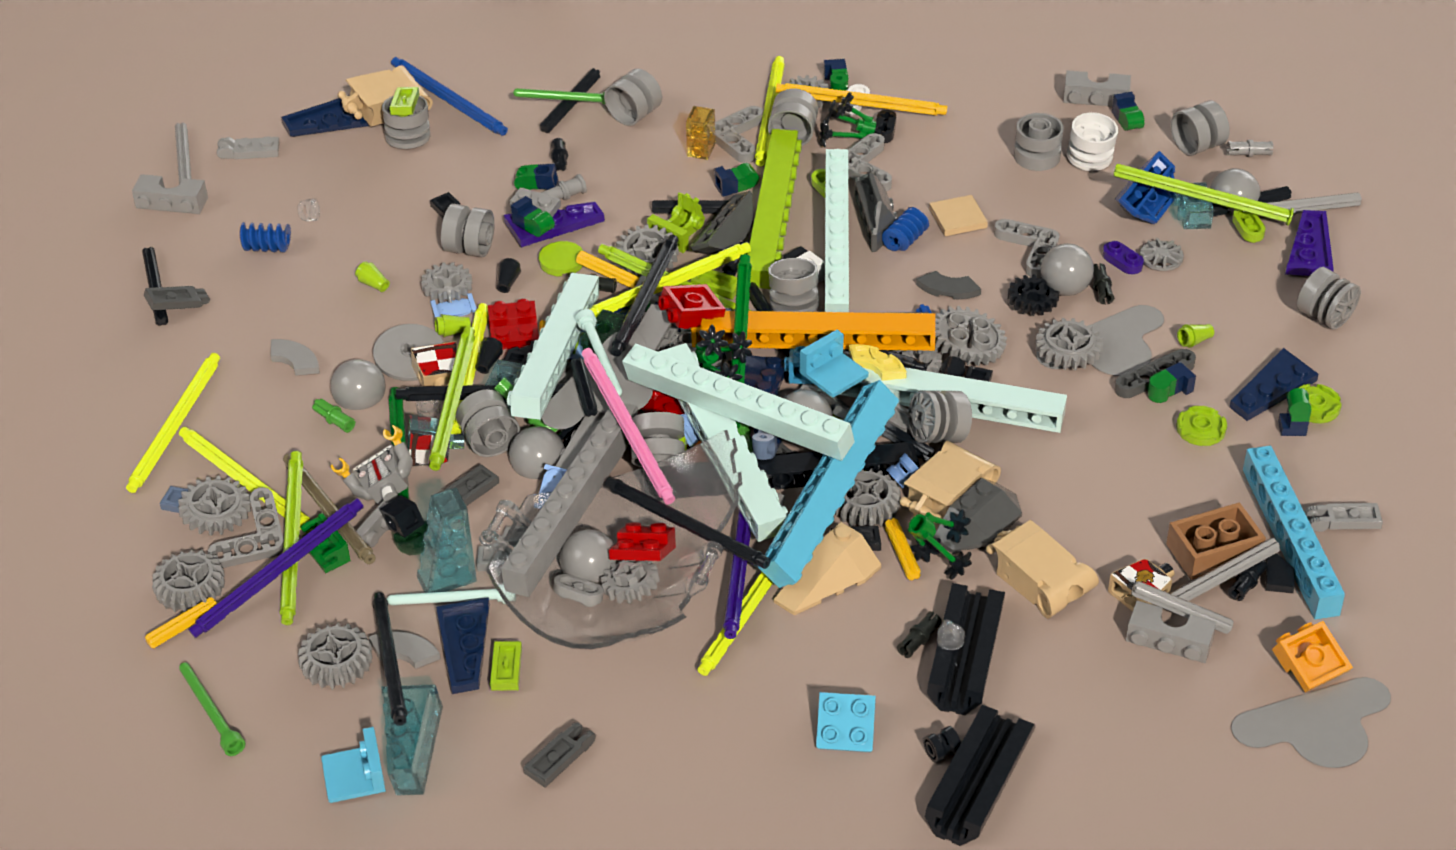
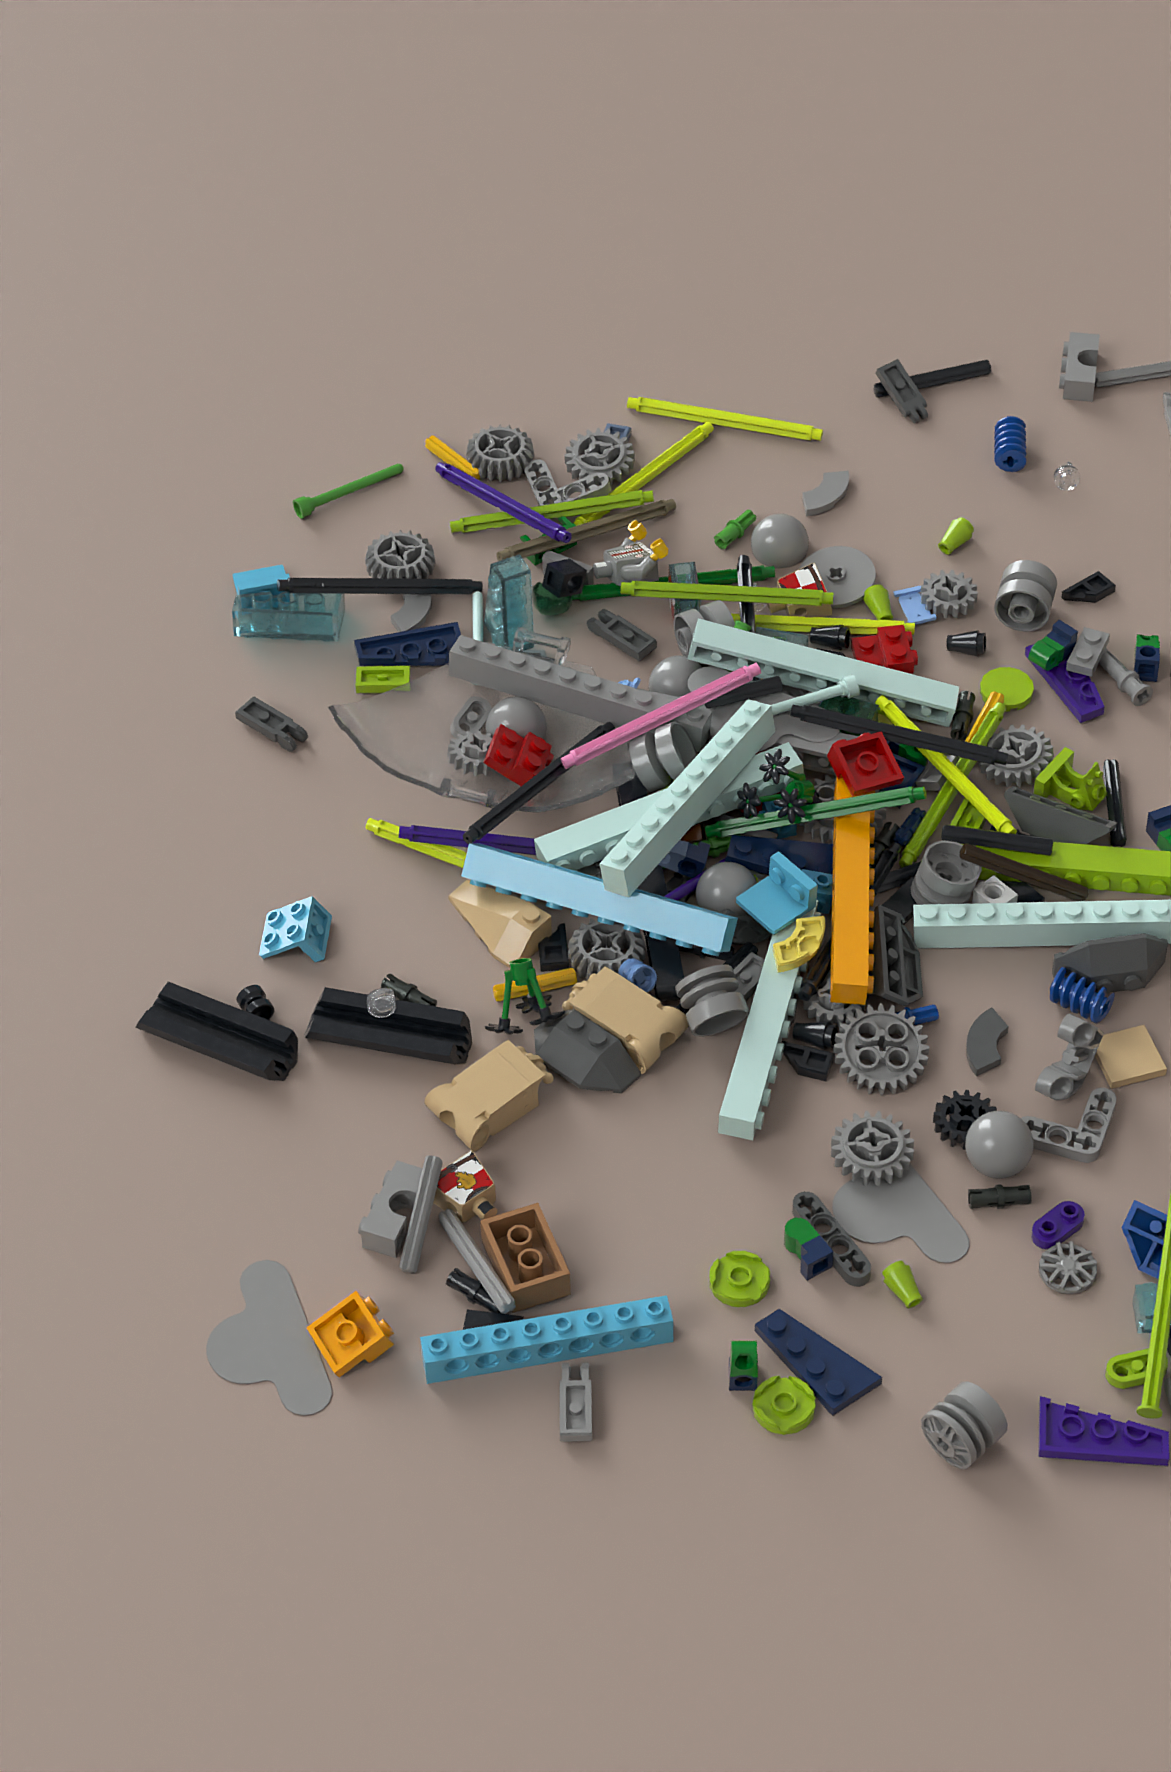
camera: 90 degrees right, 5 degrees up
(757, 248) = (997, 840): none -> black axle
(791, 242) = (1023, 872): none -> dark brown axle
(975, 235) = (1067, 1076): none -> light grey connector

